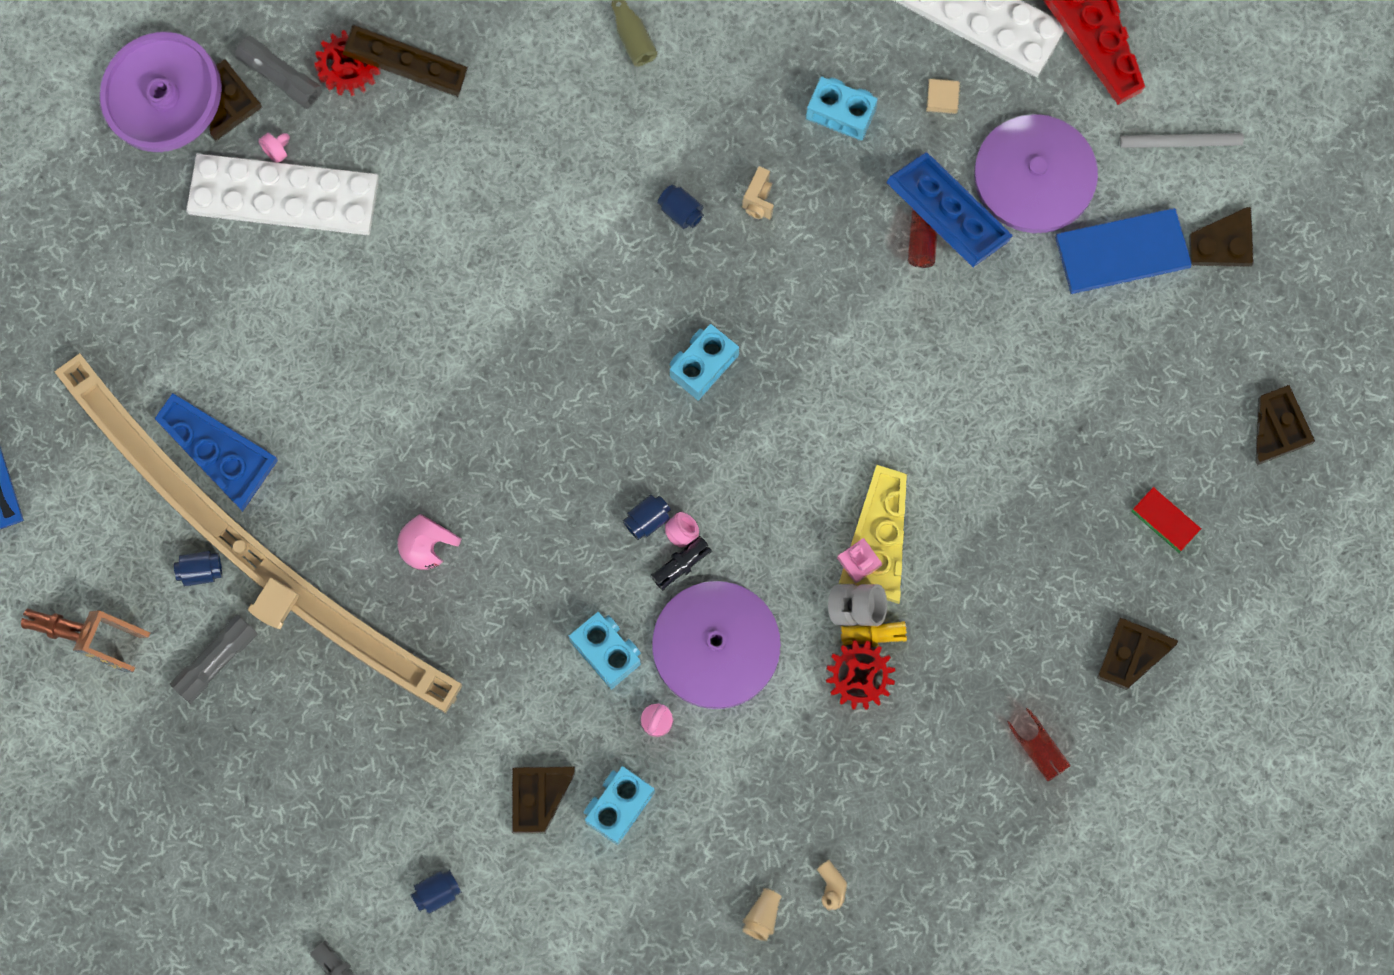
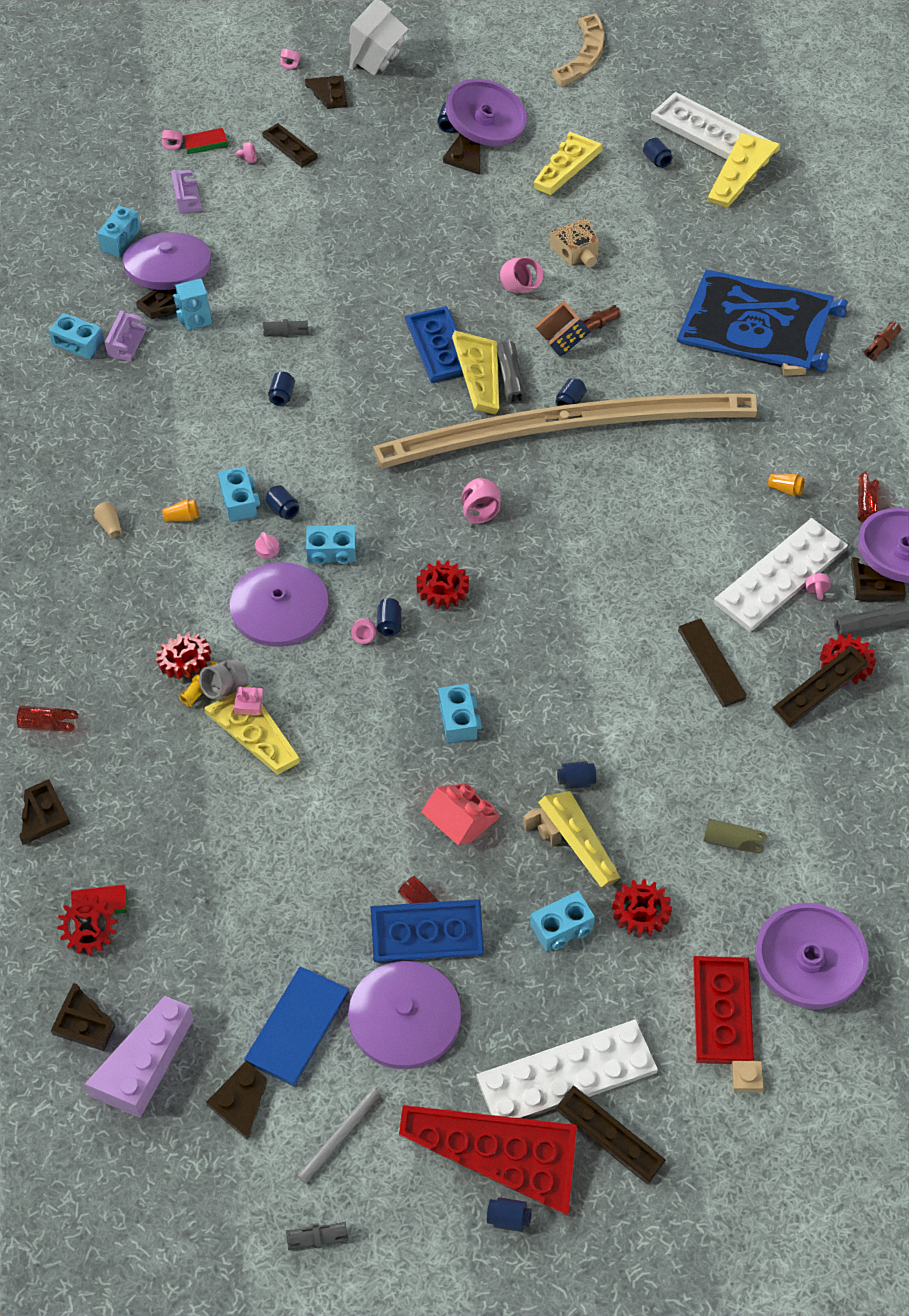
camera: 130 degrees right, 20 degrees down
(61, 764) = (517, 276): none -> bright pink helmet
(115, 173) = (867, 497): none -> clear red piece
(156, 263) = (787, 483): none -> light orange cone
(220, 452) = (627, 447): blue wing -> none
(226, 778) = (433, 339): none -> blue tile
(236, 694) = (480, 370): none -> light yellow wing
(274, 603) = (512, 407): tan tile -> none
(447, 184) = (712, 662): none -> dark brown tile
(537, 796) = (284, 462): dark brown wing -> none
(551, 492) = (442, 584): none -> red gear
(591, 749) = (282, 502): none -> dark blue brick
(681, 563) = (344, 617): black pin -> none
(688, 846) = (183, 511): none -> light orange cone
(745, 157) = (576, 830): none -> light yellow wing
(782, 58) = (645, 917): none -> red gear
(808, 274) = (460, 812): none -> coral slope
(835, 887) = (85, 565): tan arm -> none
(943, 96) = (516, 999): tan tile -> none
(1200, 499) = (96, 914): none -> red gear
(1260, 76) = (316, 1235): none -> dark grey pin
(1276, 339) = (140, 1061): none -> lavender wedge

